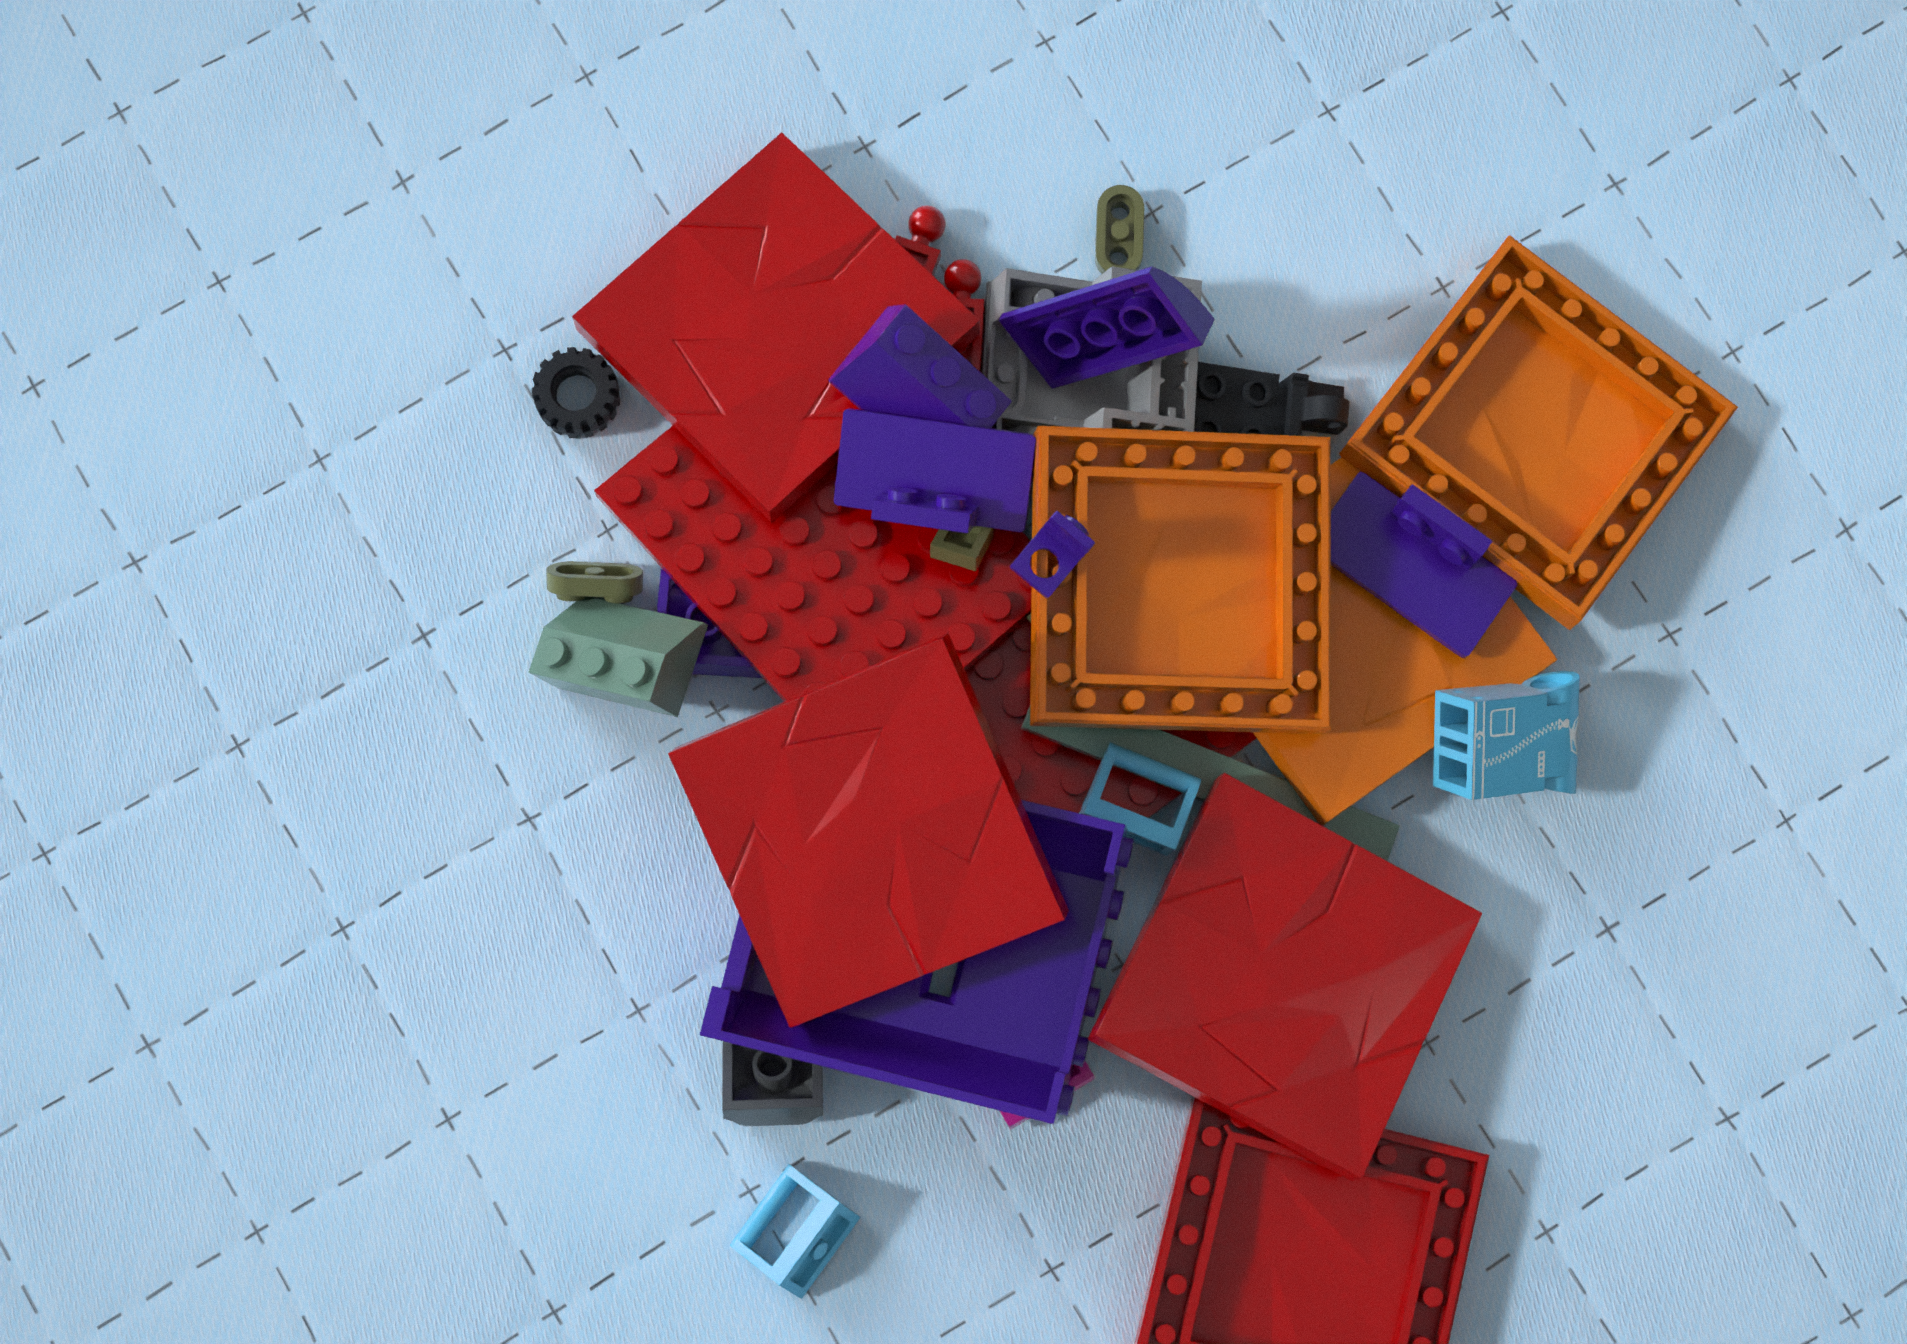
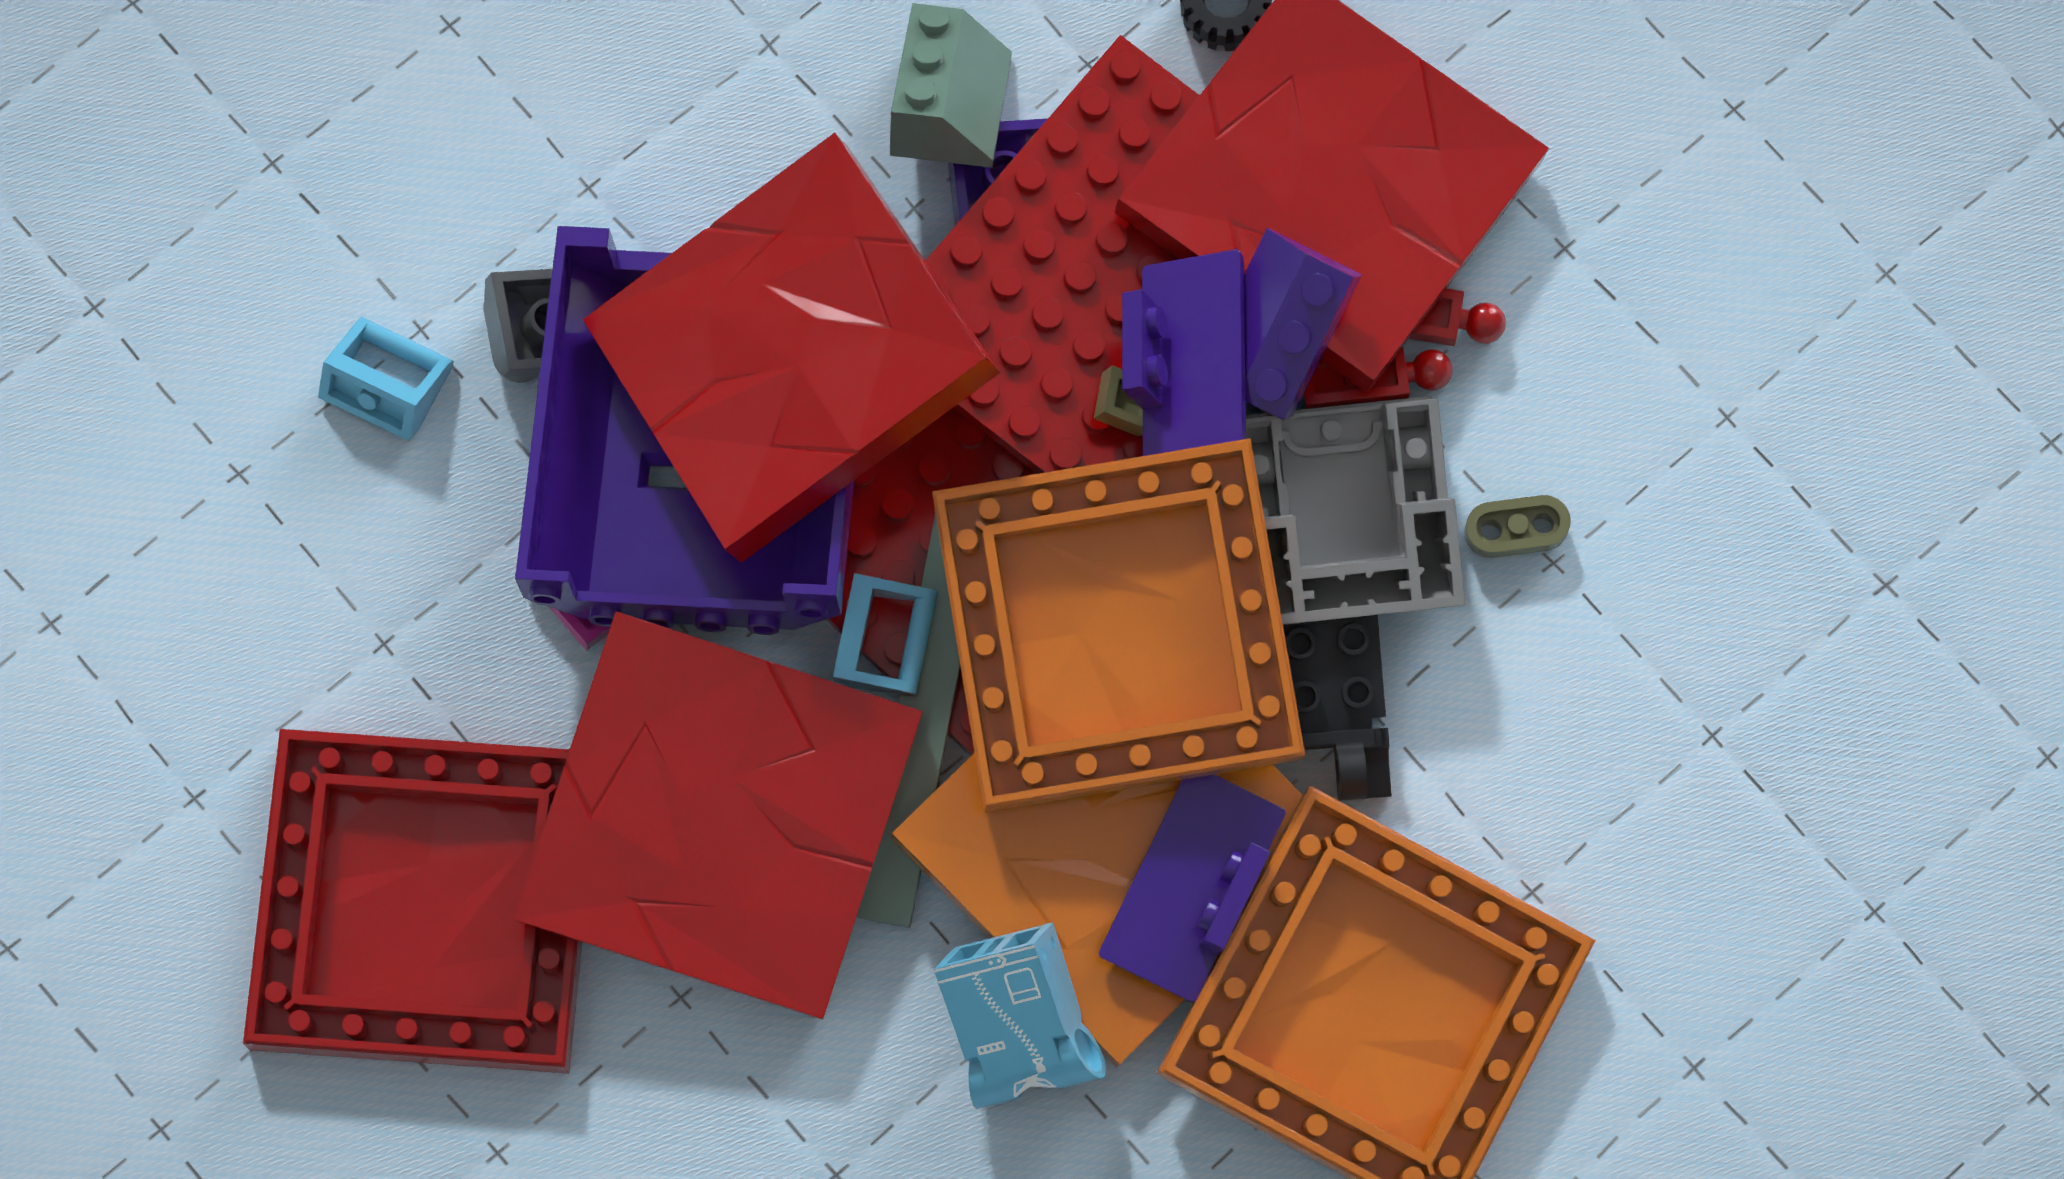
camera: 85 degrees right, 5 degrees down
(594, 579) = (1027, 56): olive plate -> none
(1063, 538) = (1128, 480): dark purple bracket -> none
(1109, 326) = (1382, 505): dark purple slope -> none

